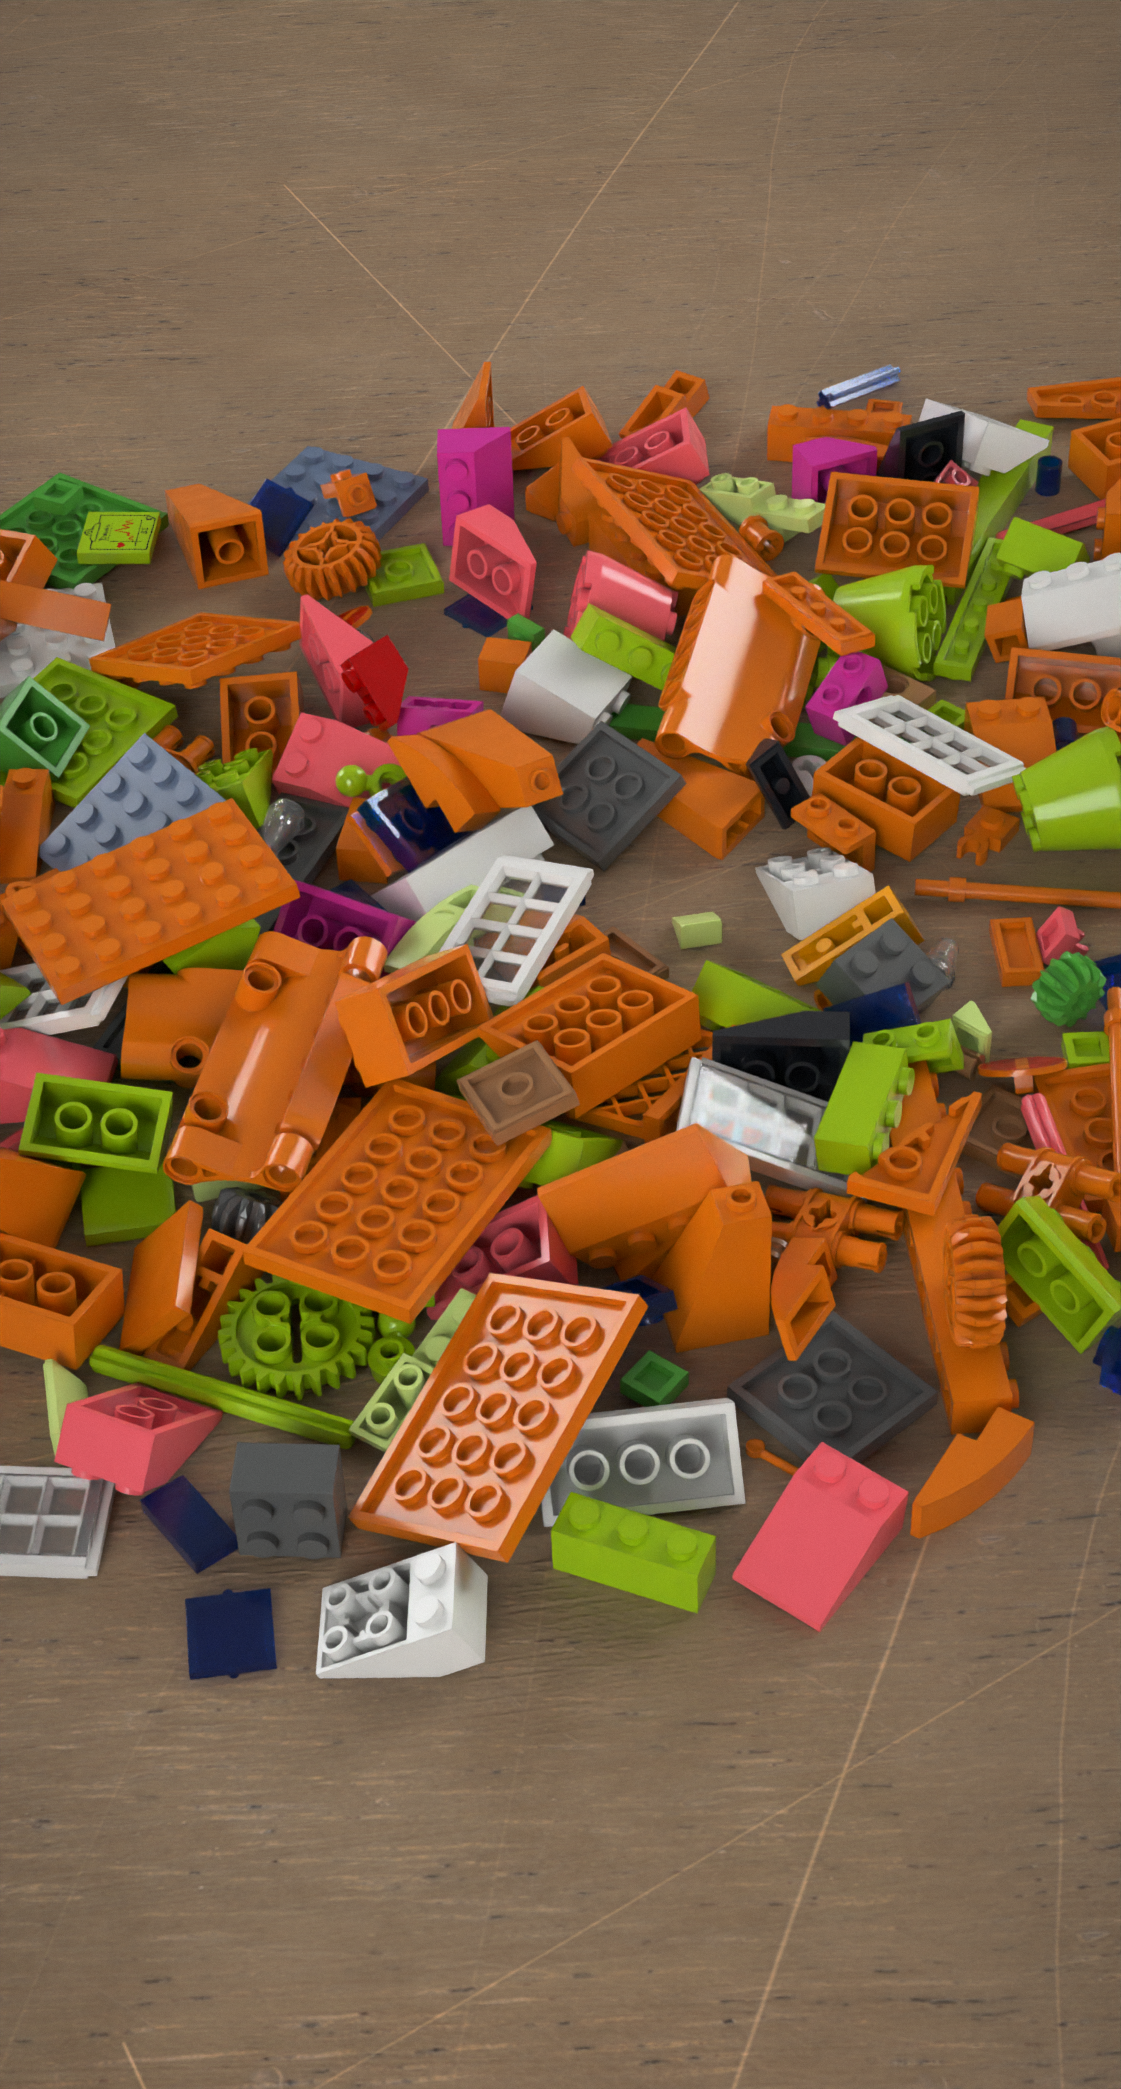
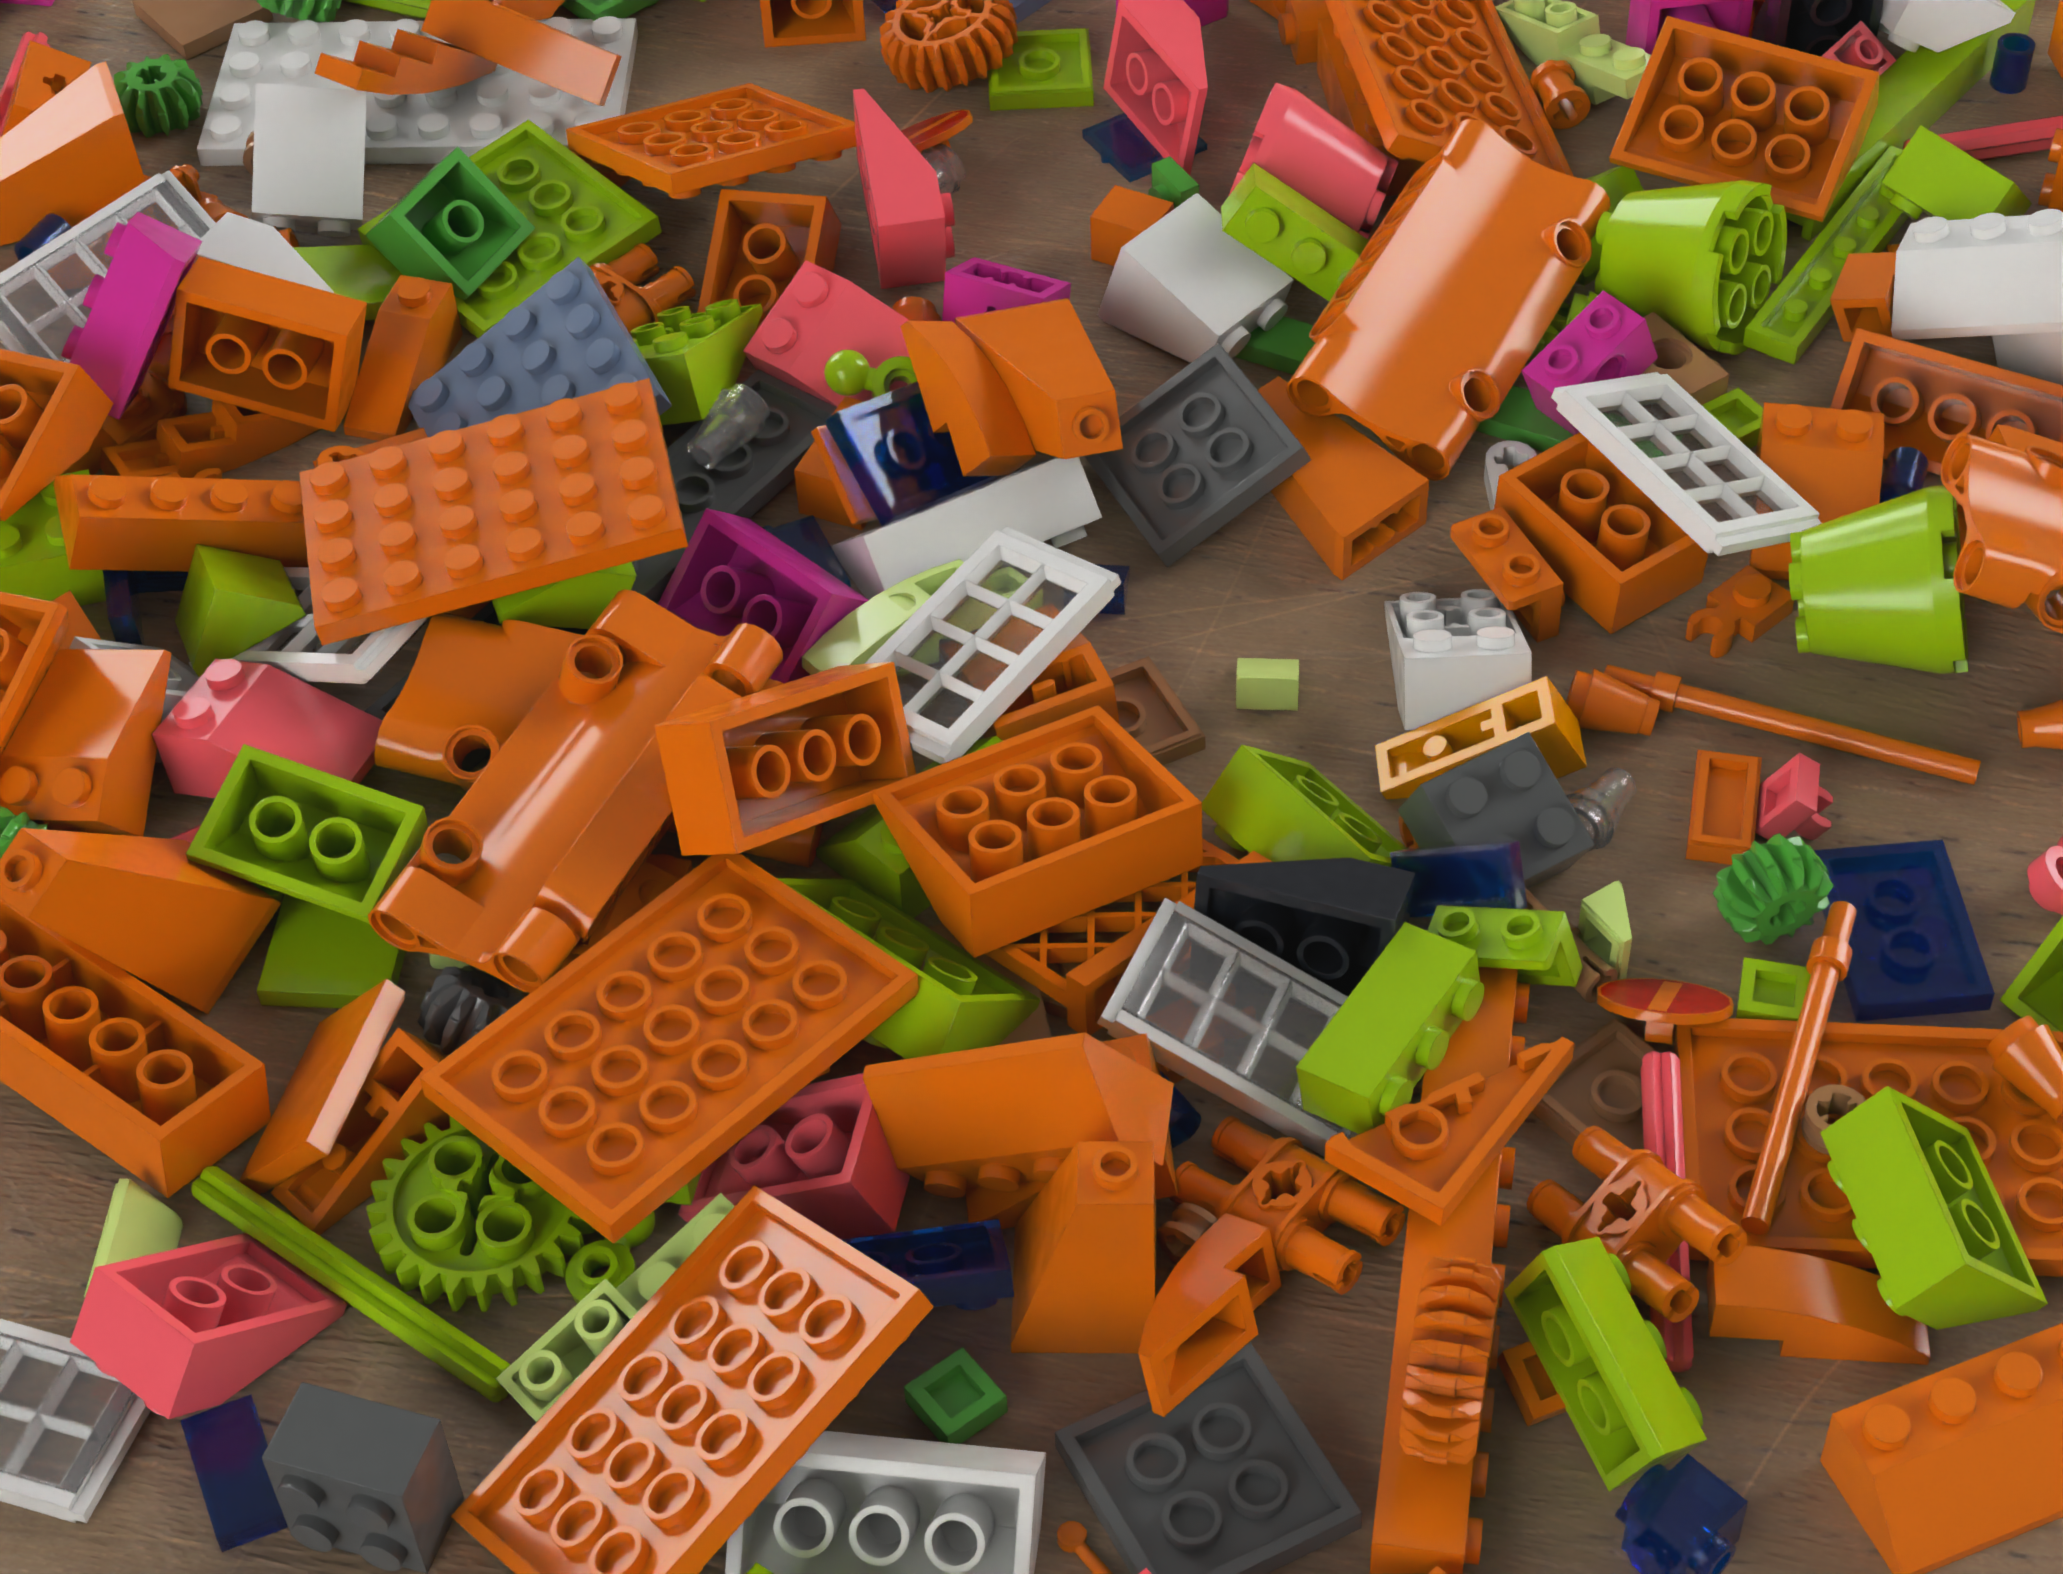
camera: 15 degrees right, 5 degrees up
(379, 680) = (926, 228): red slope -> none
(517, 1092) = (884, 910): medium nougat tile -> none
(777, 780) = (1446, 474): black slope -> none
(818, 613) = (1580, 232): orange tile -> none
(927, 902) = (1610, 705): none -> orange cone

